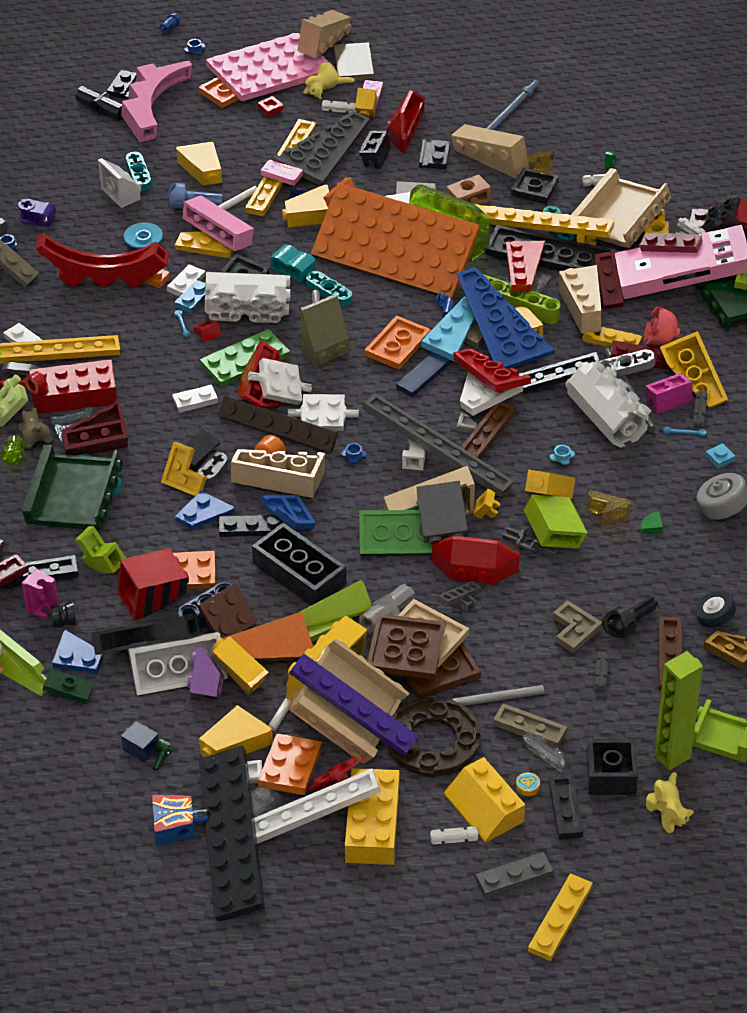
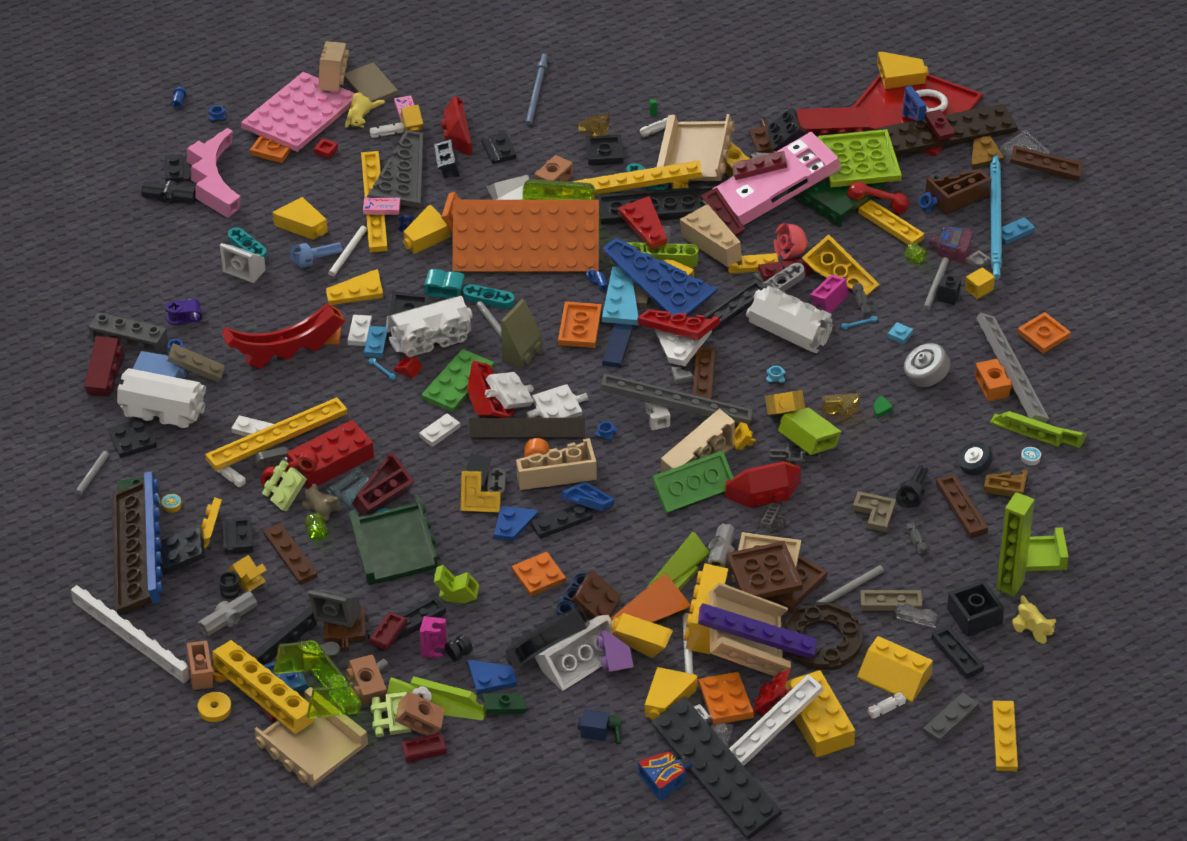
camera: 25 degrees left, 0 degrees up
(142, 234) = (295, 301): medium azure dish -> none
(150, 582) = (517, 595): red slope -> none
(218, 223) = (359, 269): bright pink brick -> none
(299, 564) = (628, 538): black brick -> none
(441, 511) = (722, 453): dark grey panel -> none
(493, 148) = (549, 127): tan wedge -> none
(527, 784) = (917, 644): tile -> none
(689, 227) = (761, 147): white axle -> none

